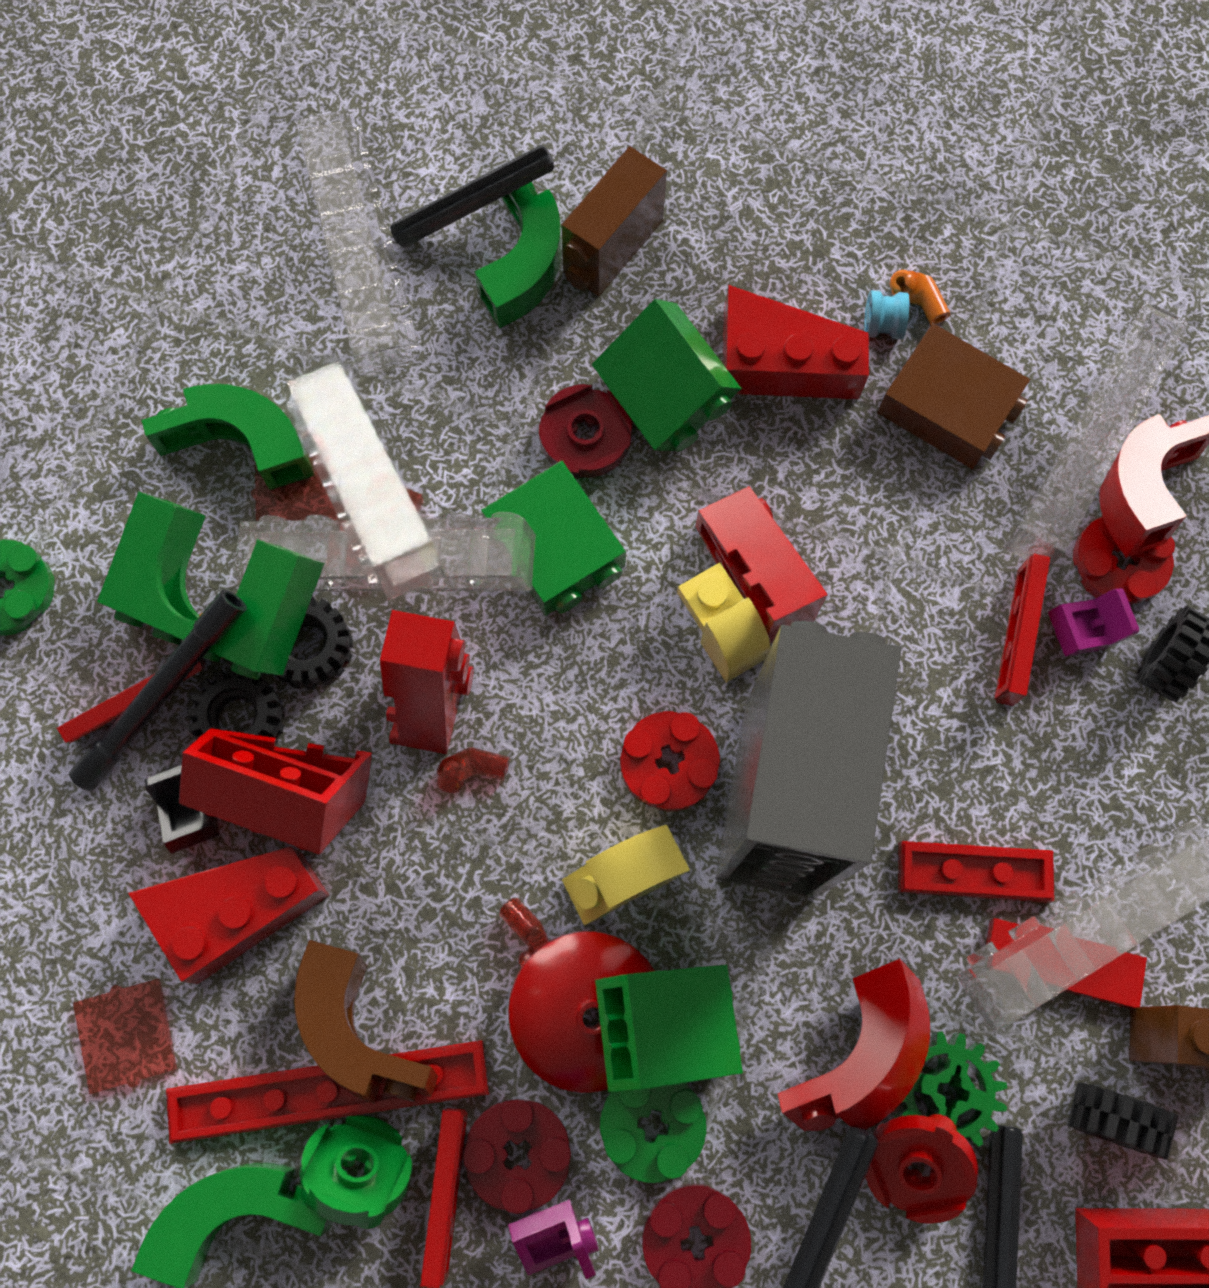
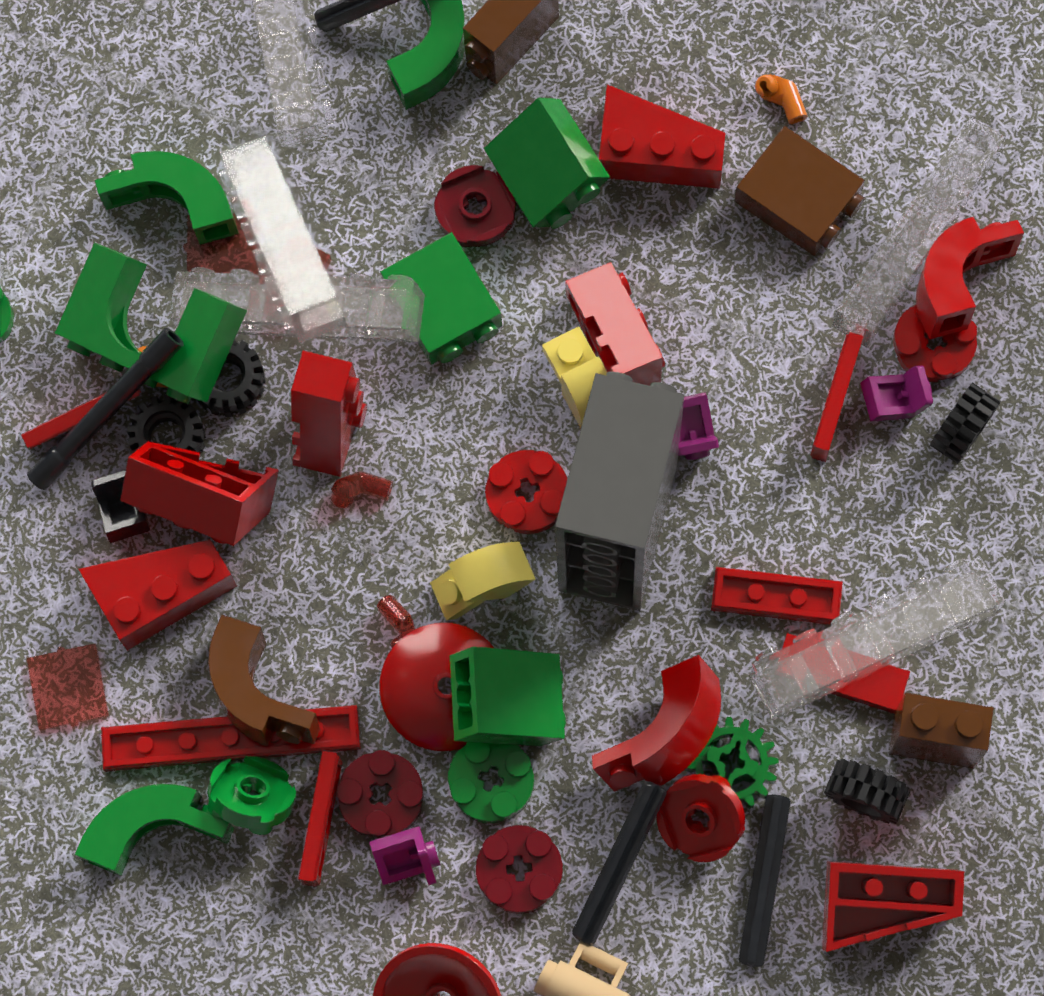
camera: 10 degrees right, 0 degrees up
(886, 314) = (748, 114): medium azure wheel -> none

